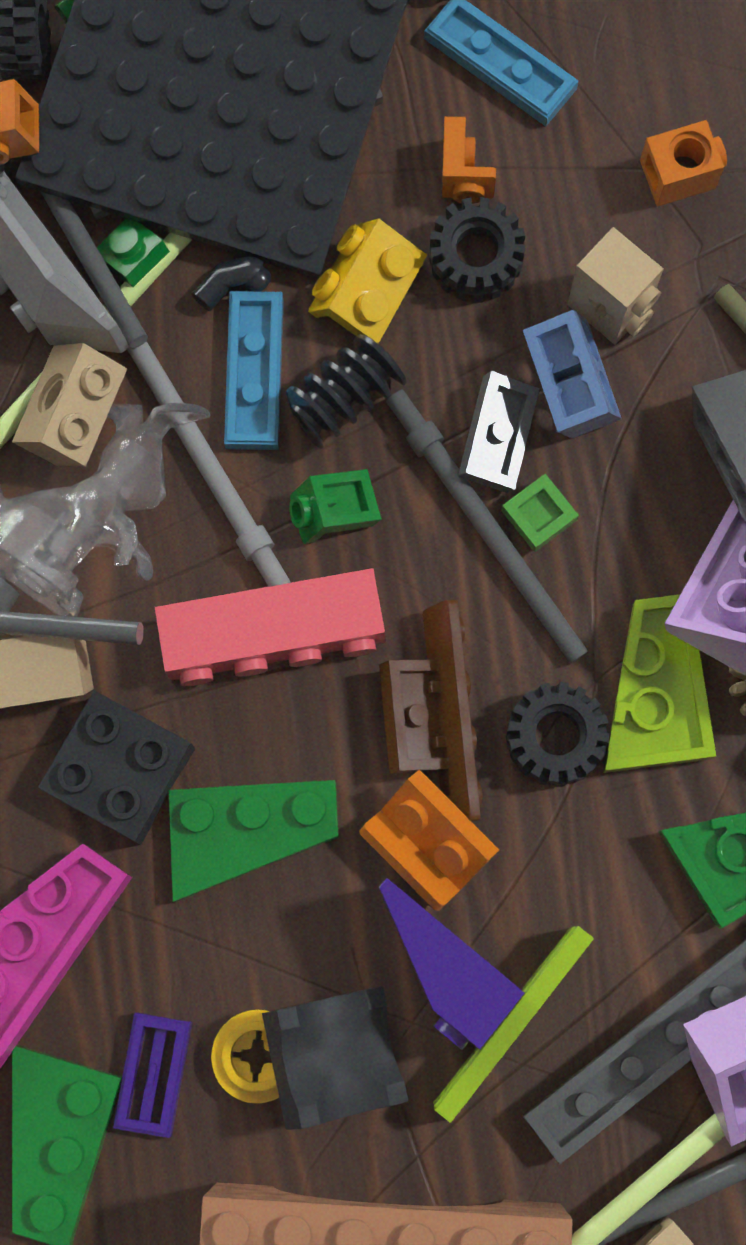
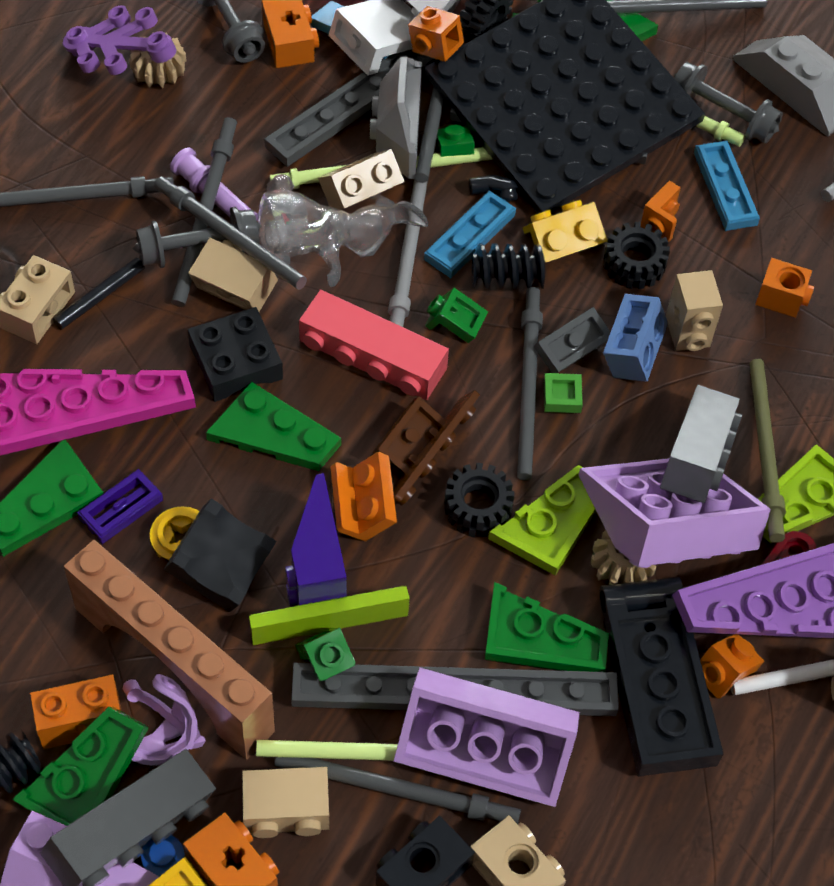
camera: 30 degrees right, 20 degrees down
(548, 1075) = (327, 653): none -> green bracket

